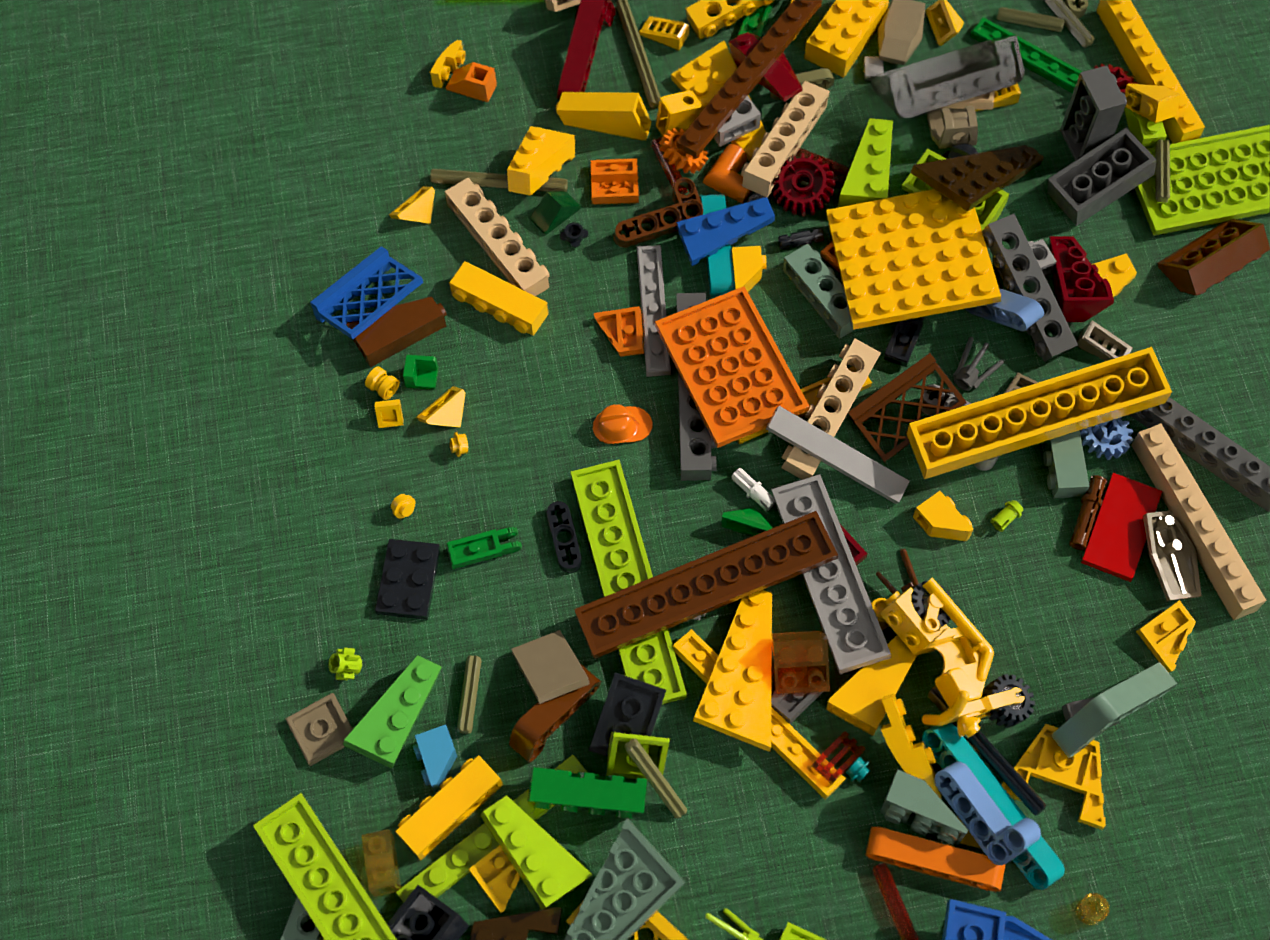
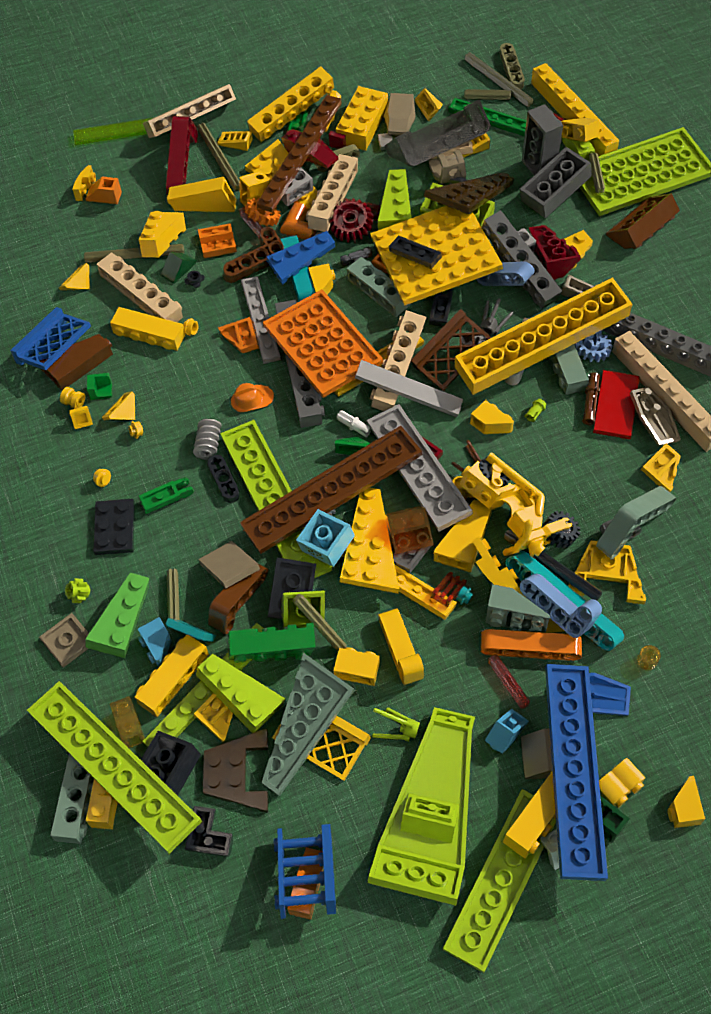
camera: 10 degrees left, 5 degrees down
(483, 751) = (190, 630): none -> teal tile
(550, 476) = (207, 438): none -> light grey piece
(557, 305) = (190, 326): none -> yellow plate
(685, 656) = (325, 537): none -> medium azure brick
(695, 843) = (357, 666): none -> yellow brick
(758, 825) = (407, 662): none -> yellow beam
(806, 57) = (337, 140): none -> dark red tile
(882, 254) = (415, 251): none -> black plate

